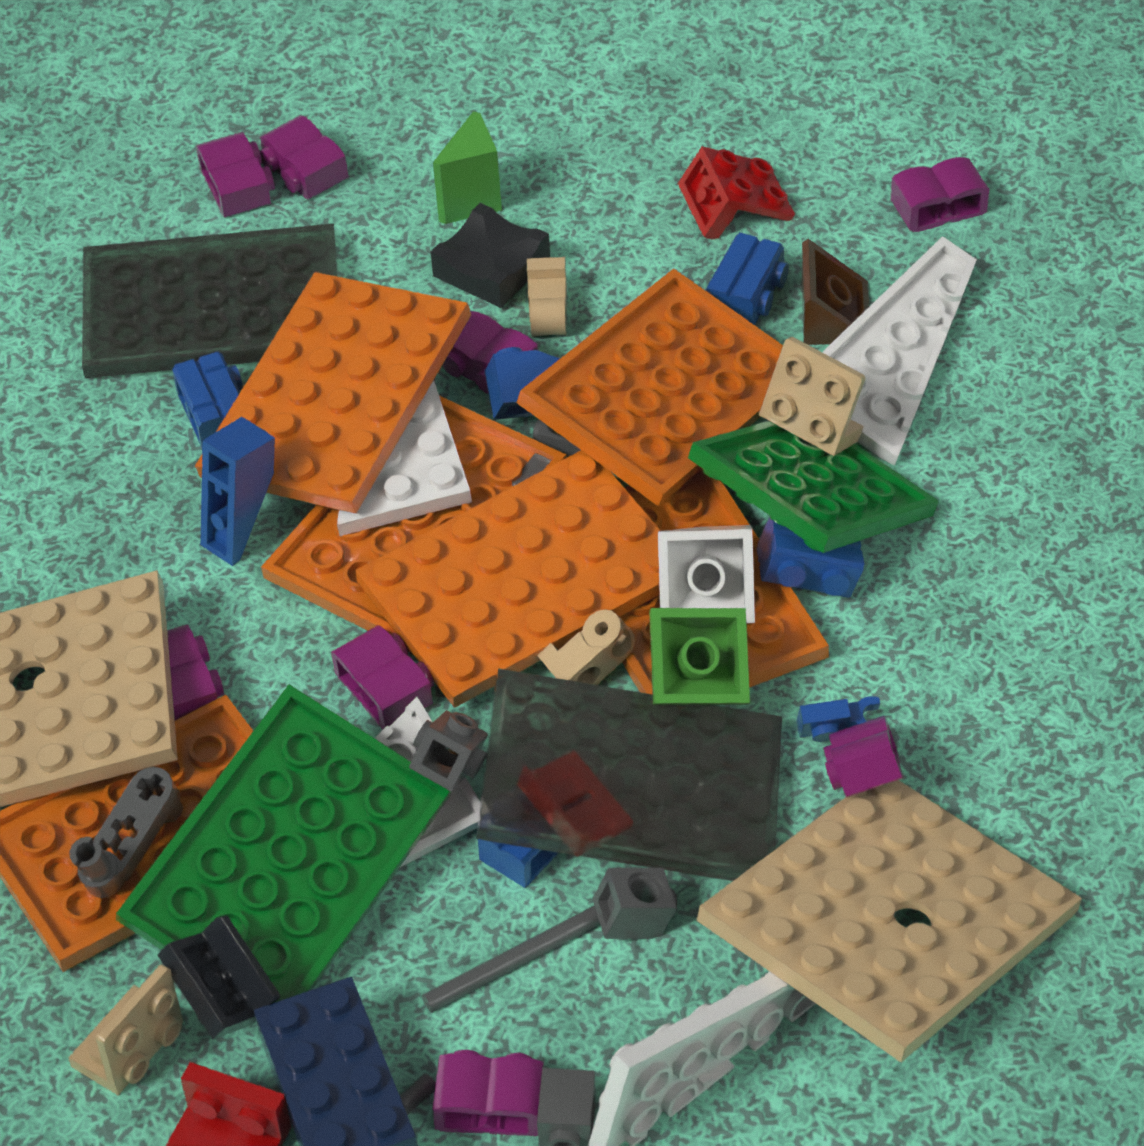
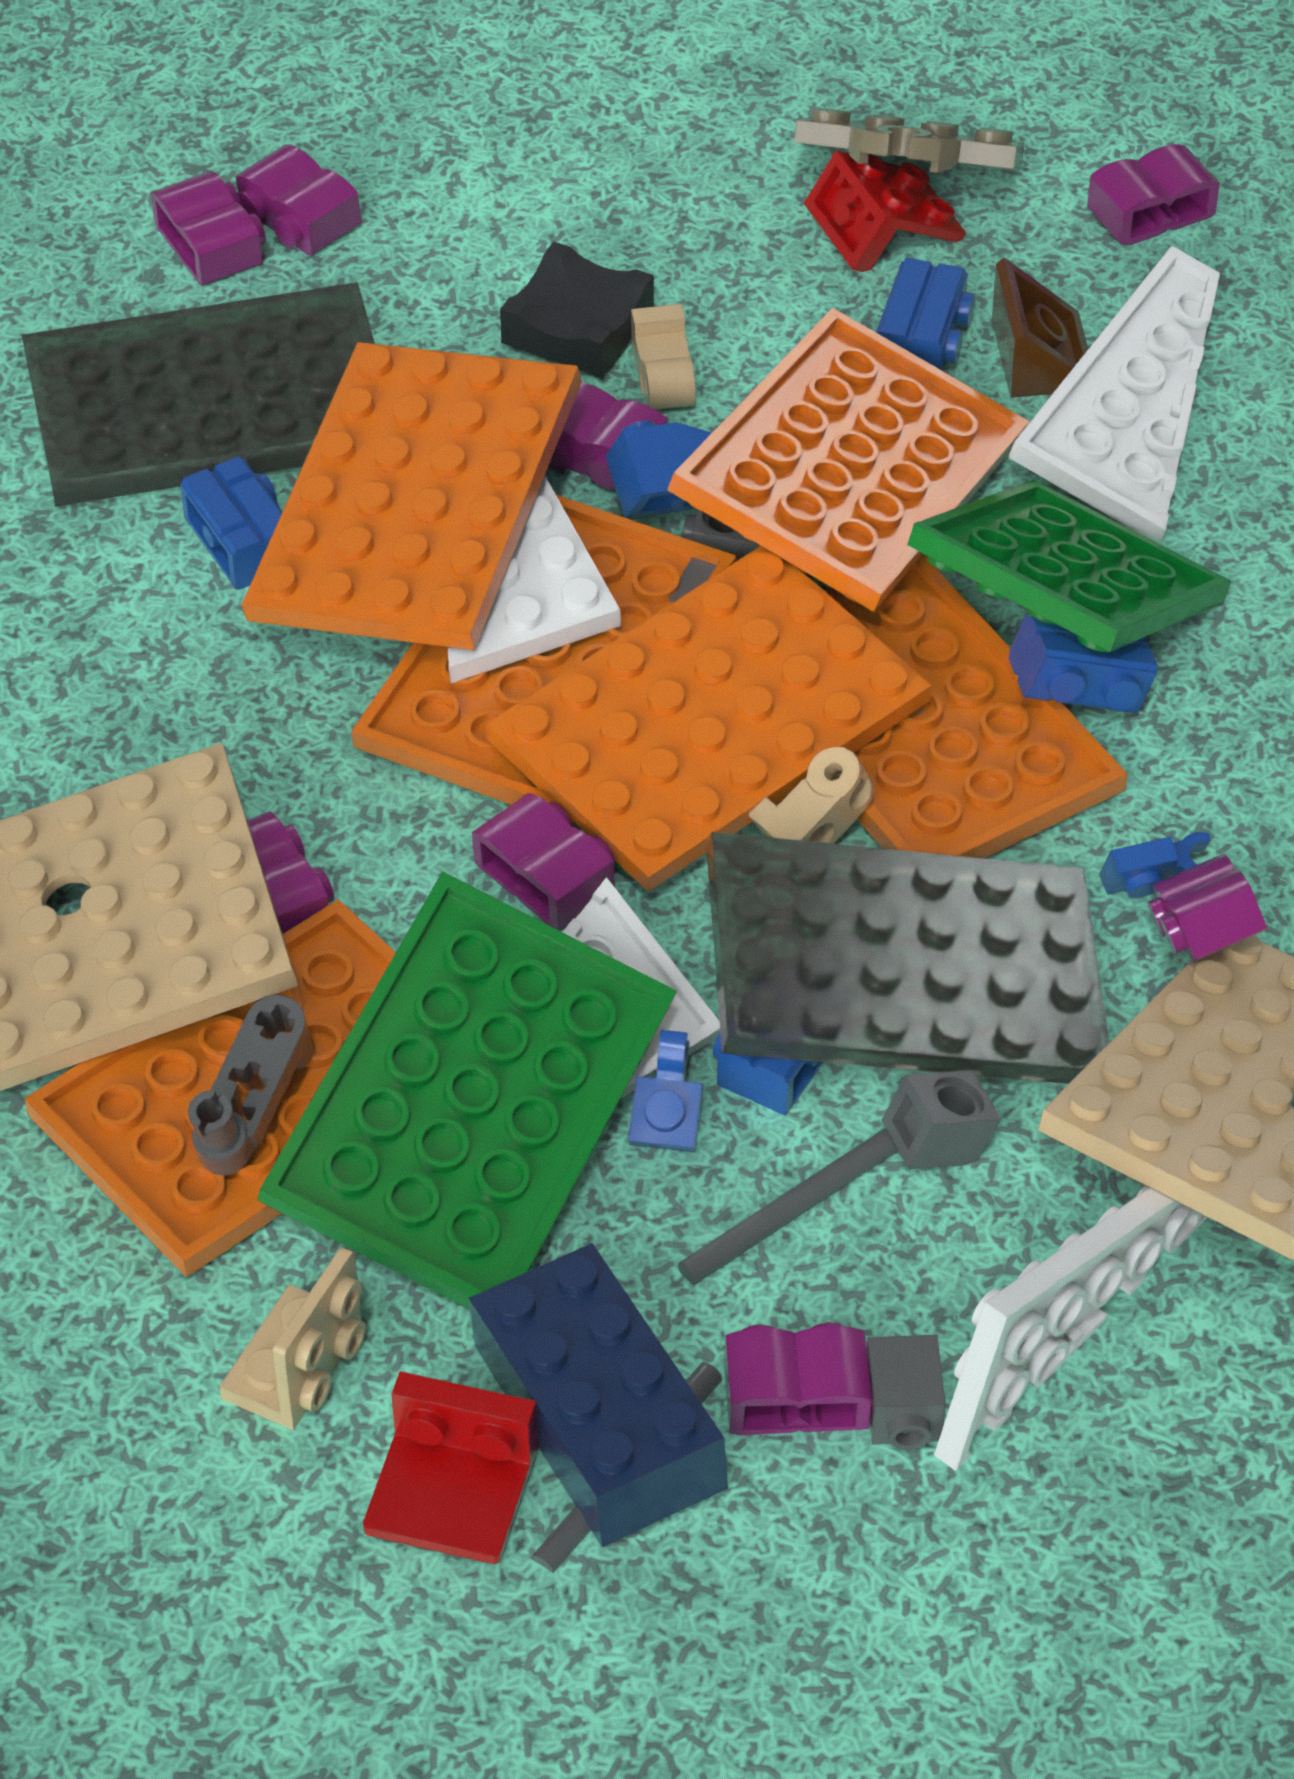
camera: 10 degrees left, 0 degrees up
(219, 977) = (418, 1258): black bracket -> none
(234, 484) = (304, 627): blue slope -> none
(435, 874) = (667, 1106): none -> plate
(449, 749) = (663, 960): dark grey brick -> none
(467, 172) = (531, 203): bright green slope -> none
(564, 782) = (832, 968): clear red piece -> none
(699, 656) = (974, 795): bright green slope -> none
(707, 568) = (958, 695): white slope -> none
(775, 145) = (889, 136): none -> dark tan plate
(814, 397) = (1055, 456): tan bracket -> none

